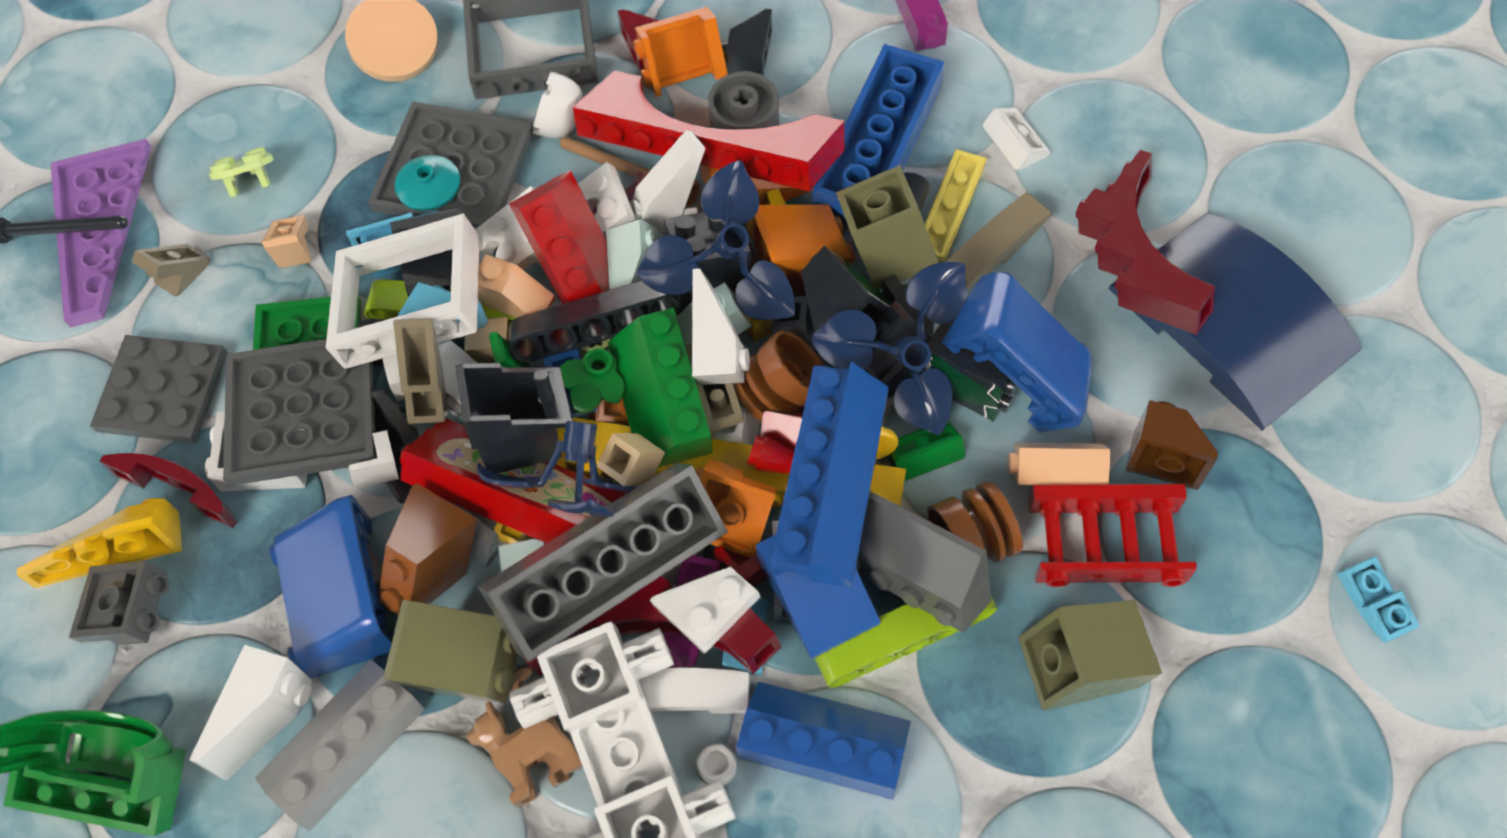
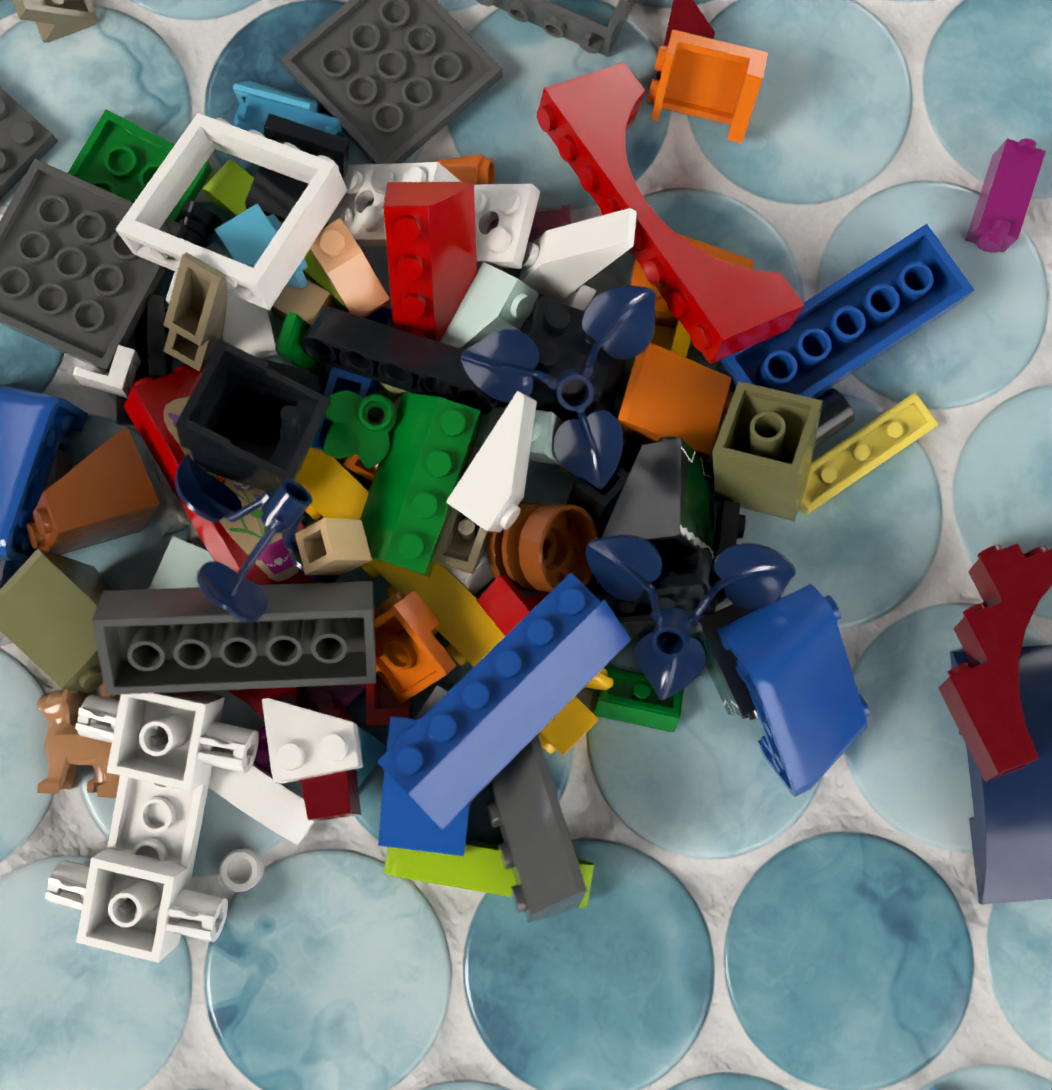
camera: 30 degrees right, 20 degrees up
(287, 242) = (176, 48): light nougat slope -> none
(427, 182) = (356, 89): teal dish -> none
(555, 111) = (540, 66): white cylinder -> none
(620, 164) = (557, 171): medium nougat piece -> none
(743, 102) = (726, 201): dark grey wheel -> none
(749, 44) = (789, 120): black slope -> none
(770, 456) = (476, 624): red cone -> none
(823, 740) = (347, 917): blue slope -> none
(980, 519) = (618, 825): dark orange wheel -> none
(1000, 238) = (863, 531): dark tan slope -> none
(1015, 137) = (988, 418): white slope -> none
(1059, 463) = (751, 811): light nougat brick -> none
(1088, 653) = (636, 1011): olive slope -> none
(1125, 502) = (783, 892): red fence -> none
(1170, 446) = (868, 869): reddish brown slope -> none

